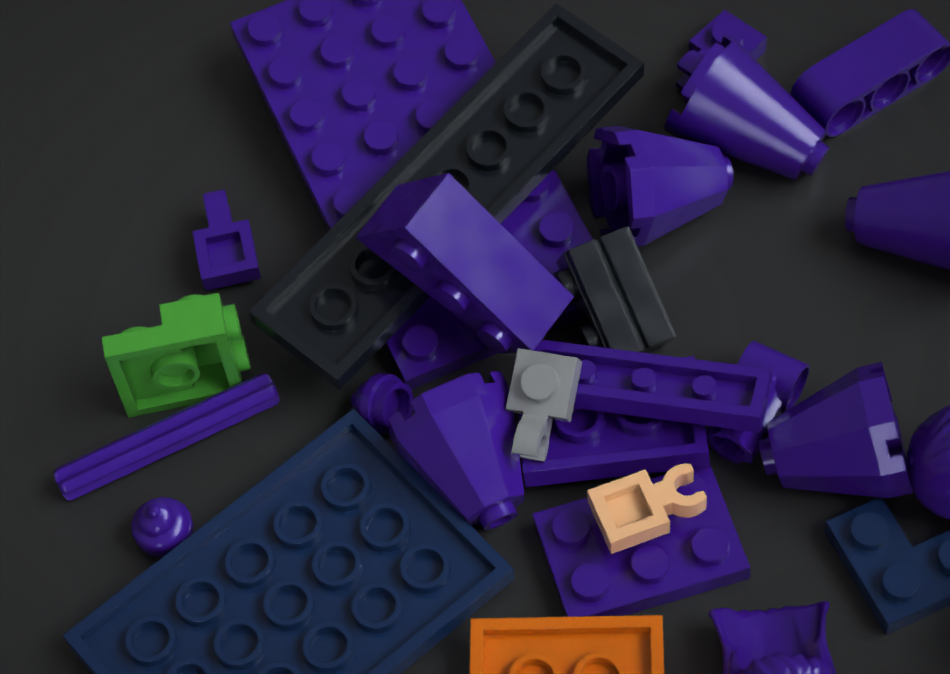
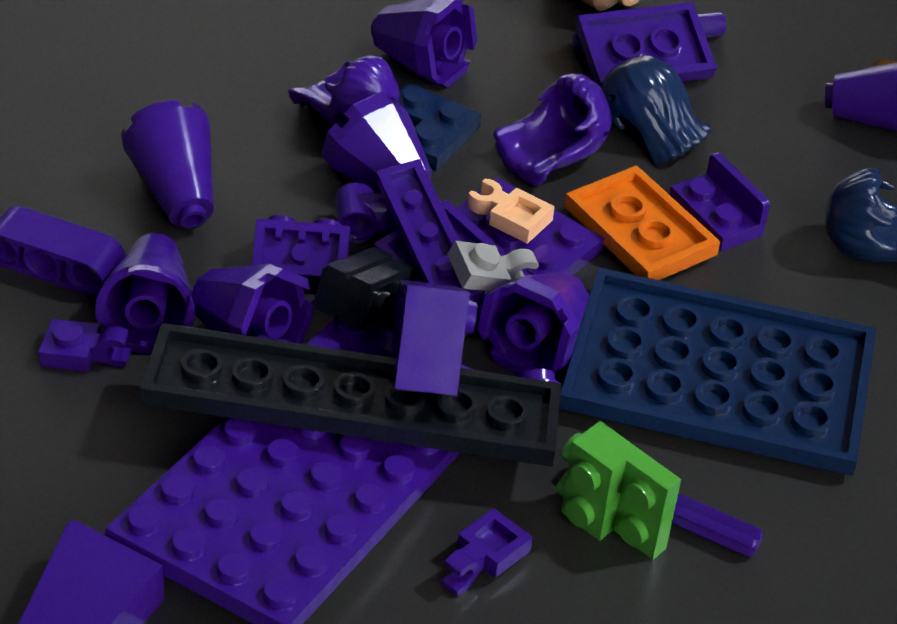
camera: 135 degrees left, 15 degrees down
(161, 525) = (731, 466): dark purple plate -> none
(739, 292) = (300, 245): none -> dark purple bracket

